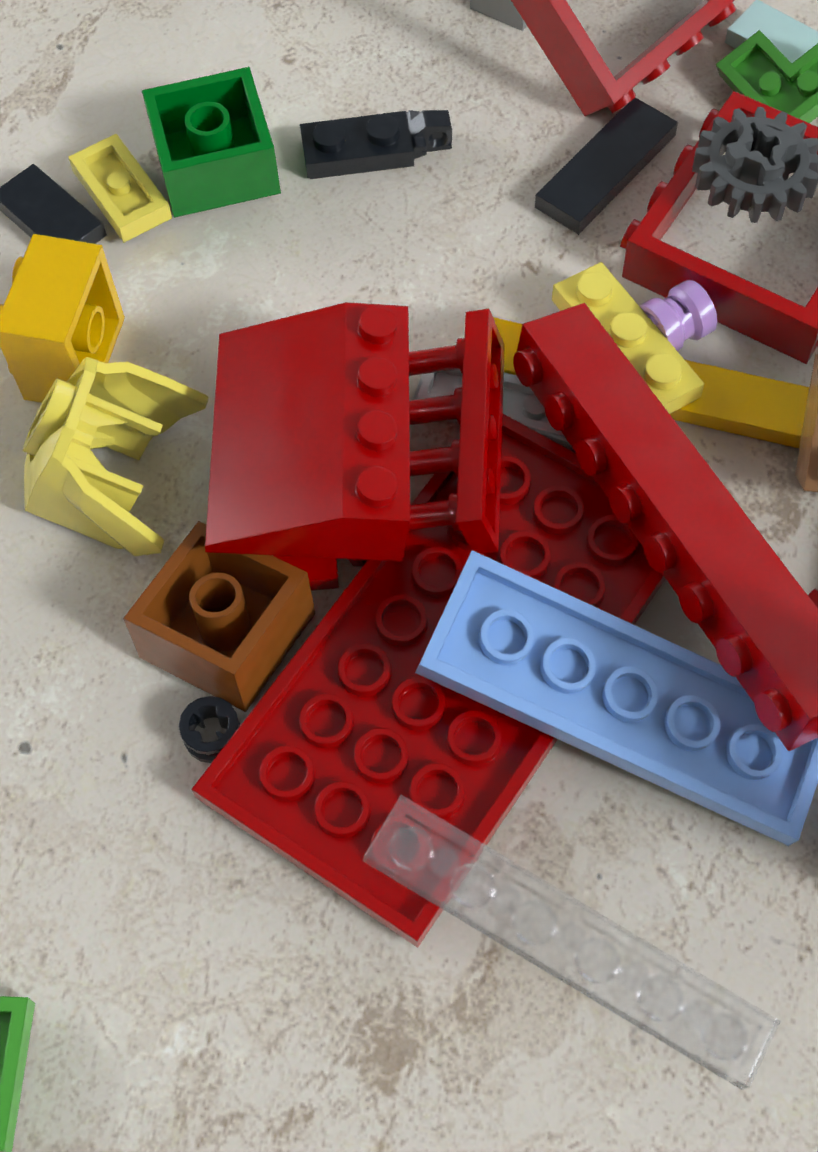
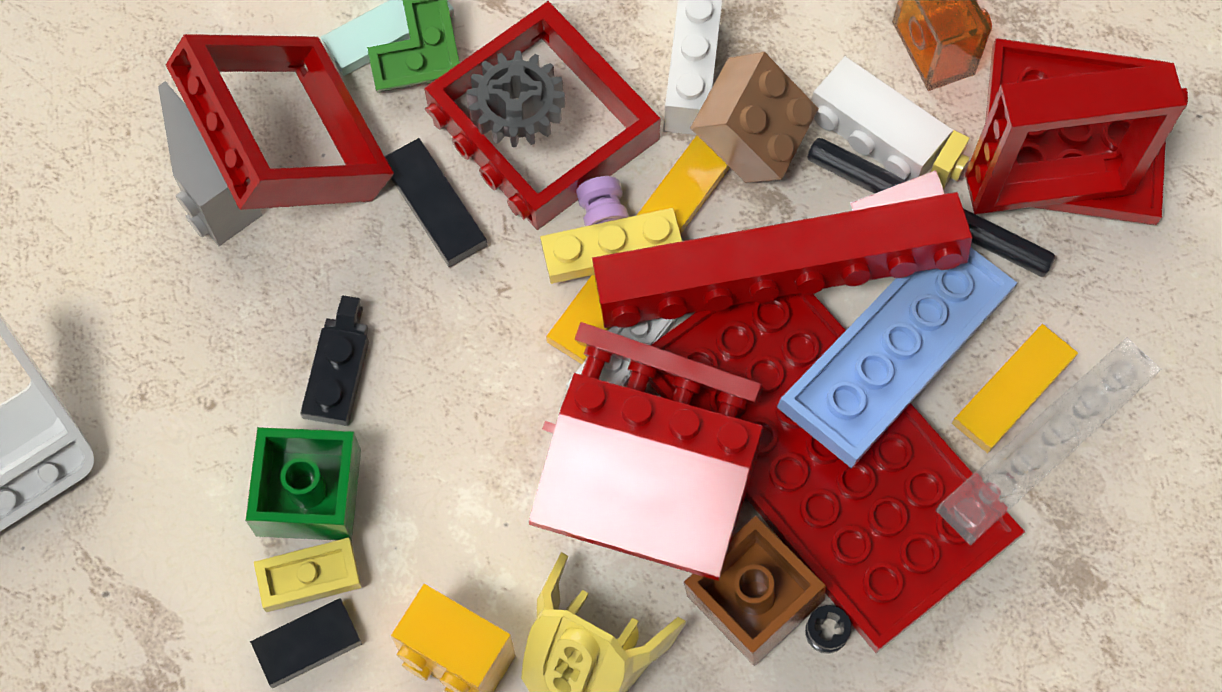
camera: 75 degrees left, 5 degrees up
(641, 885) = (1014, 388): none -> yellow tile

